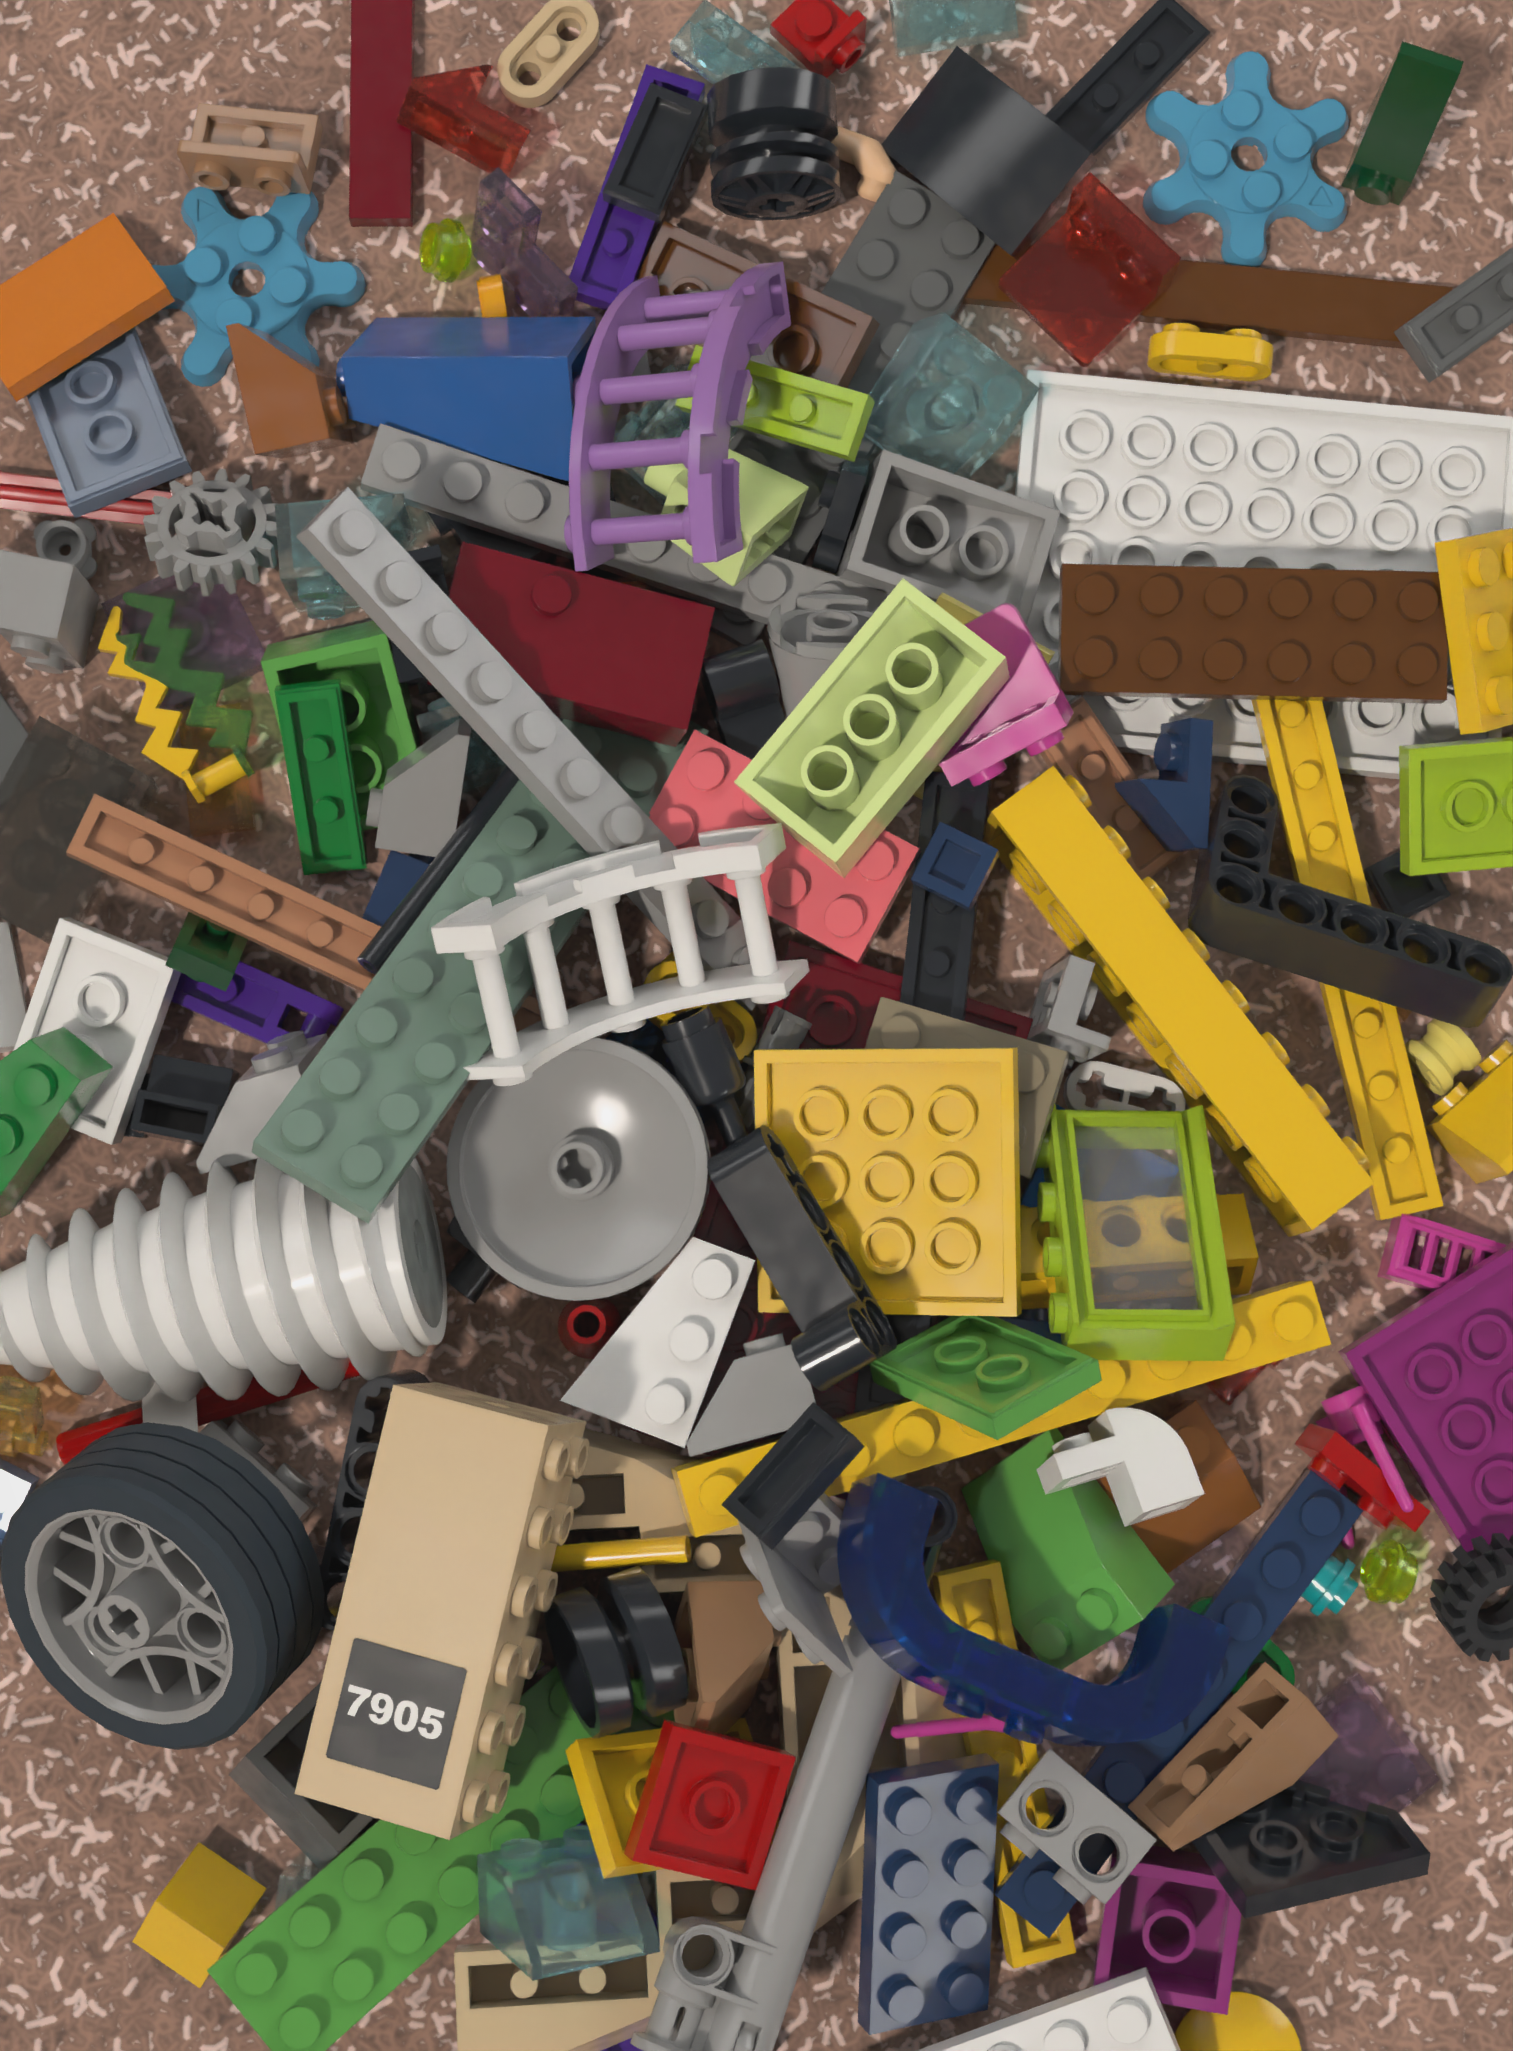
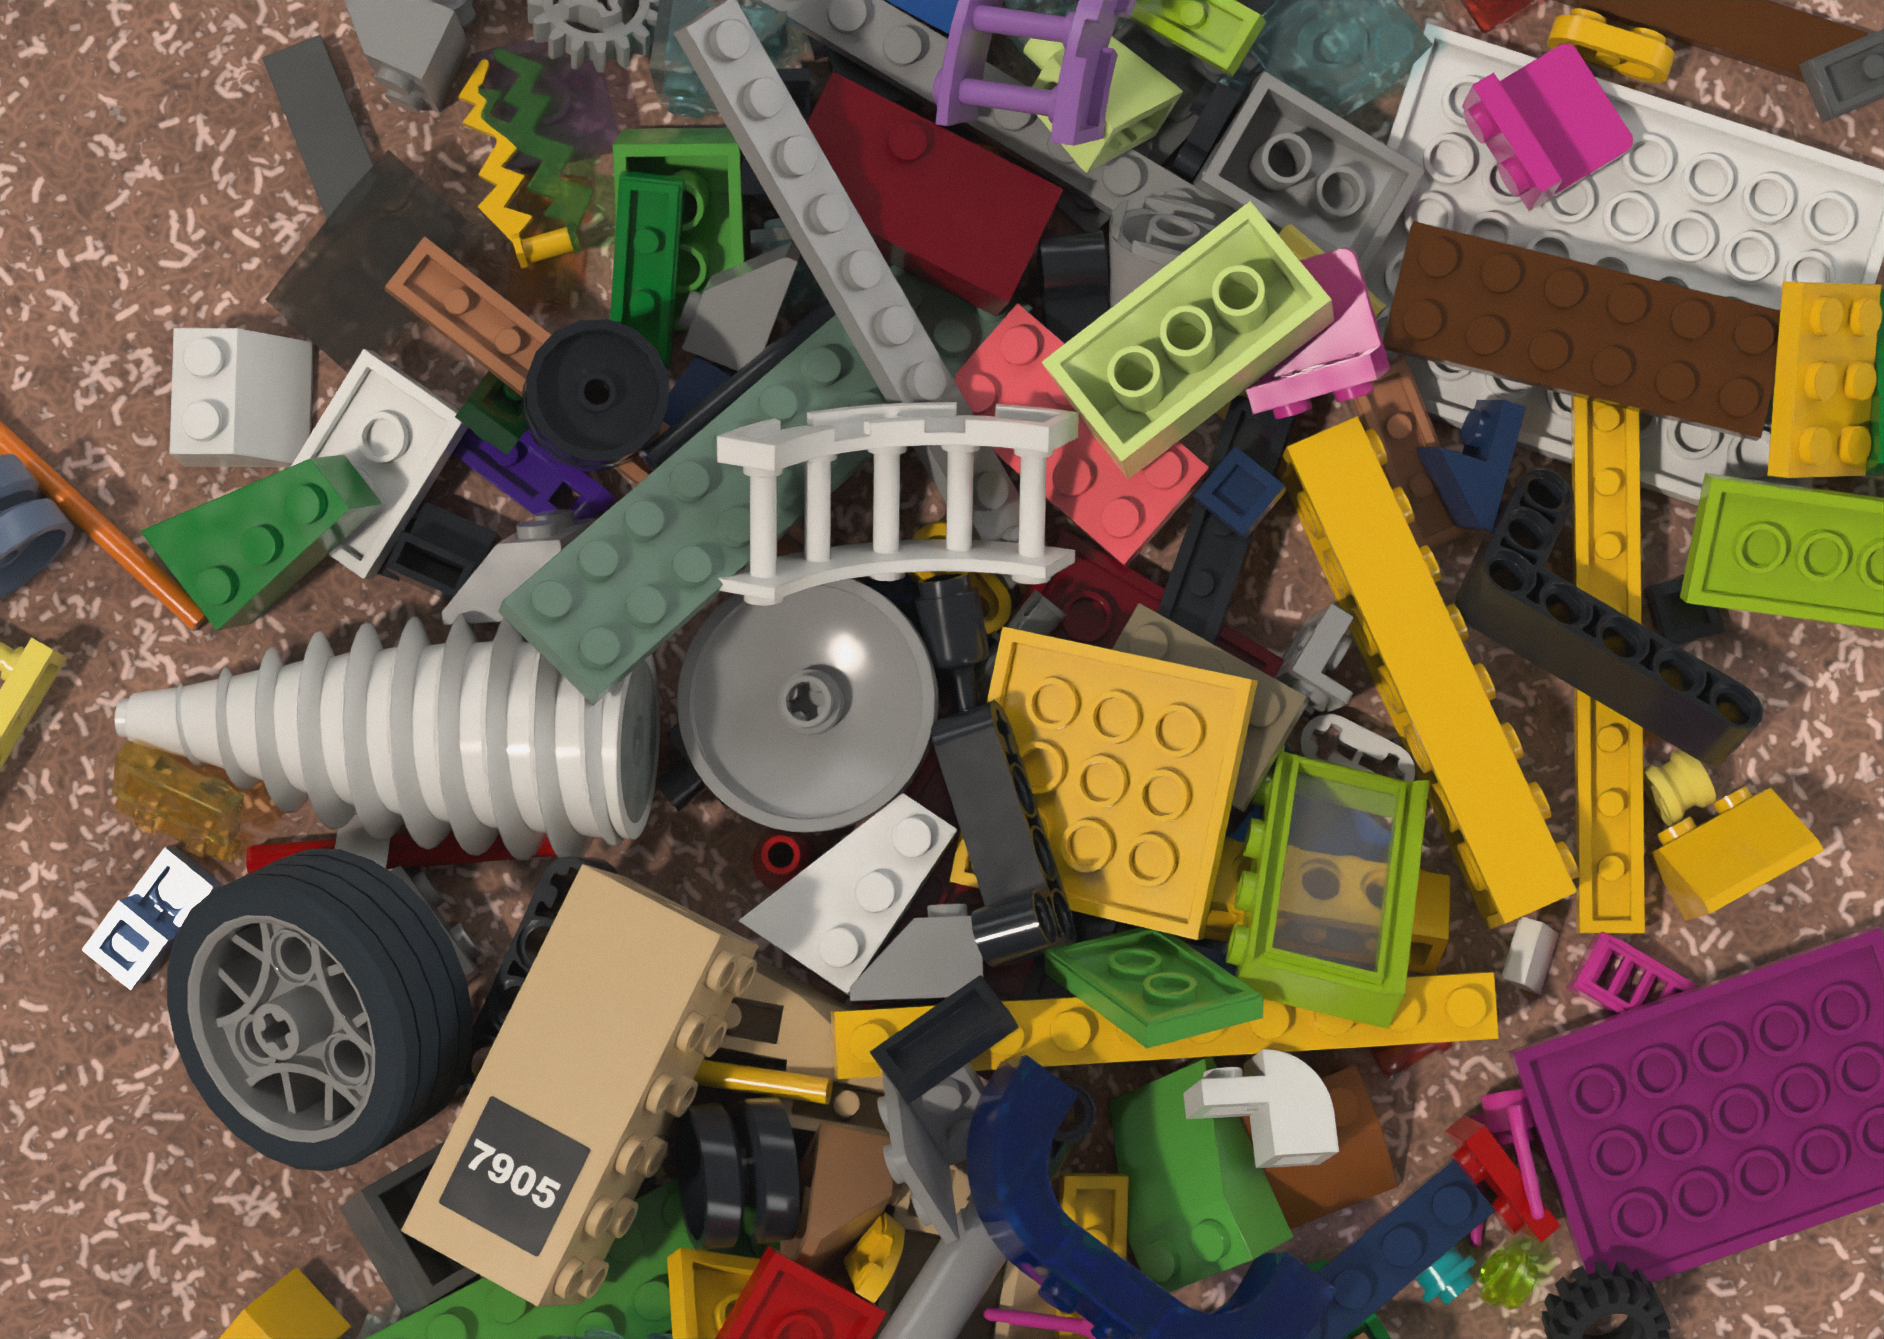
camera: 20 degrees right, 0 degrees up
(330, 888) = (628, 376): none -> black wheel
(772, 1704) = (875, 1257): none -> yellow tile
(1167, 442) = (1546, 125): none -> dark pink bracket
(1337, 1252) = (1530, 955): none -> white tile

